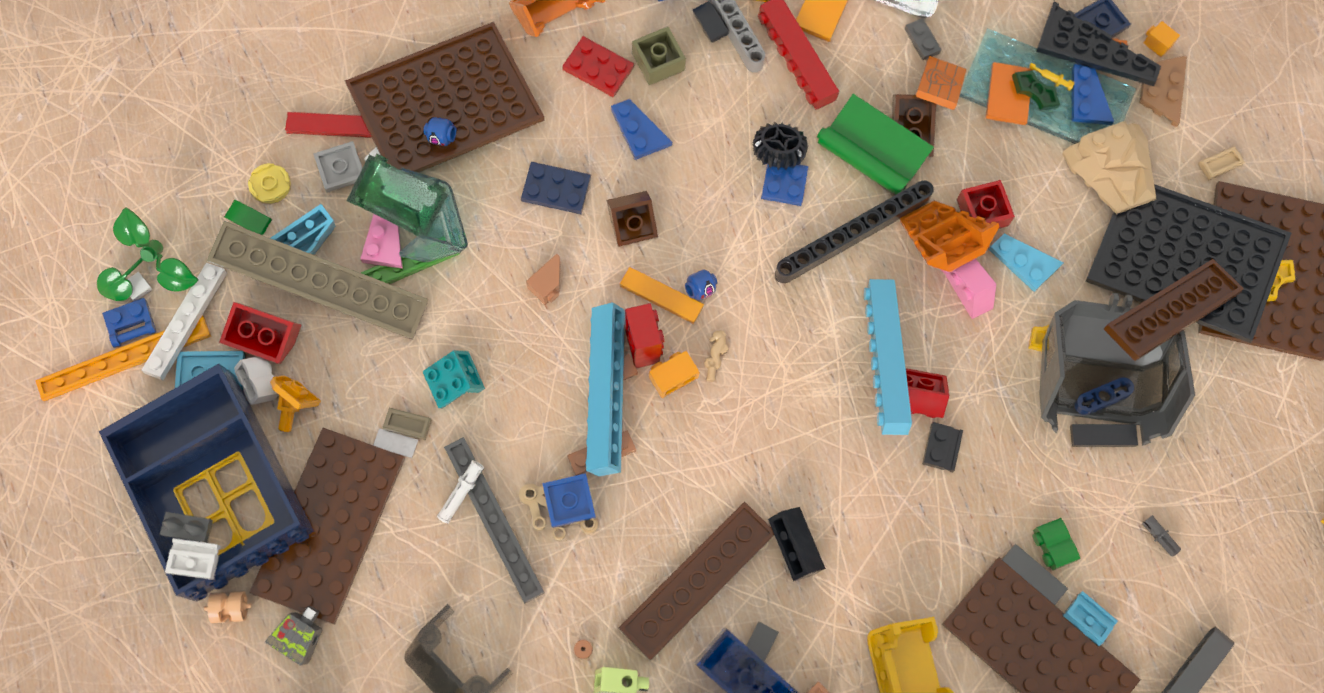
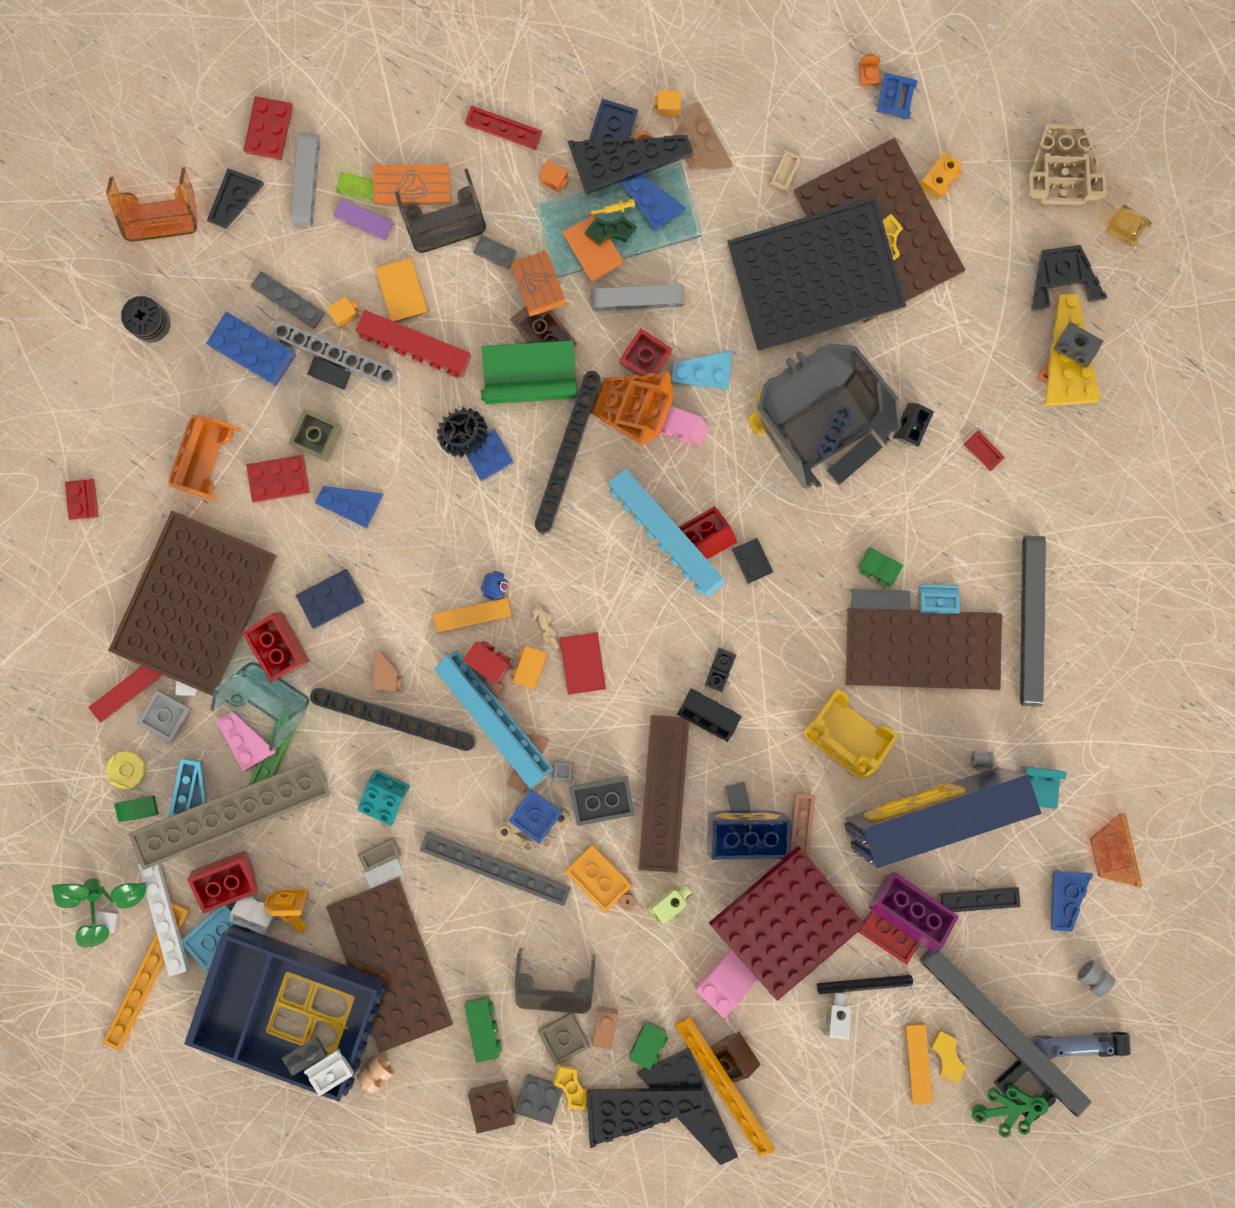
camera: 30 degrees left, 15 degrees up
(126, 317) = (120, 947): blue plate -> none
(297, 636) = (437, 1053): torso -> none
(356, 651) = (483, 1029): none -> green brick
(397, 196) = (231, 710): clear green windscreen -> none
(440, 131) = (213, 633): blue head -> none
(464, 485) = (457, 864): white pin -> none
(479, 185) = (275, 646): none -> red slope
(522, 331) = (383, 719): none -> black beam
(575, 606) = (598, 878): none -> light orange tile
(625, 486) = (563, 771): none -> light grey tile
(632, 218) = (404, 577): reddish brown slope -> none
(639, 537) = (602, 800): none -> dark grey brick
(721, 410) = (582, 663): none -> red tile
(838, 515) = (720, 669): none -> black slope
(1015, 160) = (637, 297): none -> light grey beam
(1019, 20) = (553, 176): none -> orange brick
(1115, 165) = (713, 242): tan wedge -> none
(1162, 536) = (944, 500): dark grey axle -> none
(1173, 309) = (837, 336): reddish brown plate -> none
(1182, 446) = (913, 424): none -> black brick
(1230, 523) = (983, 450): none -> red tile

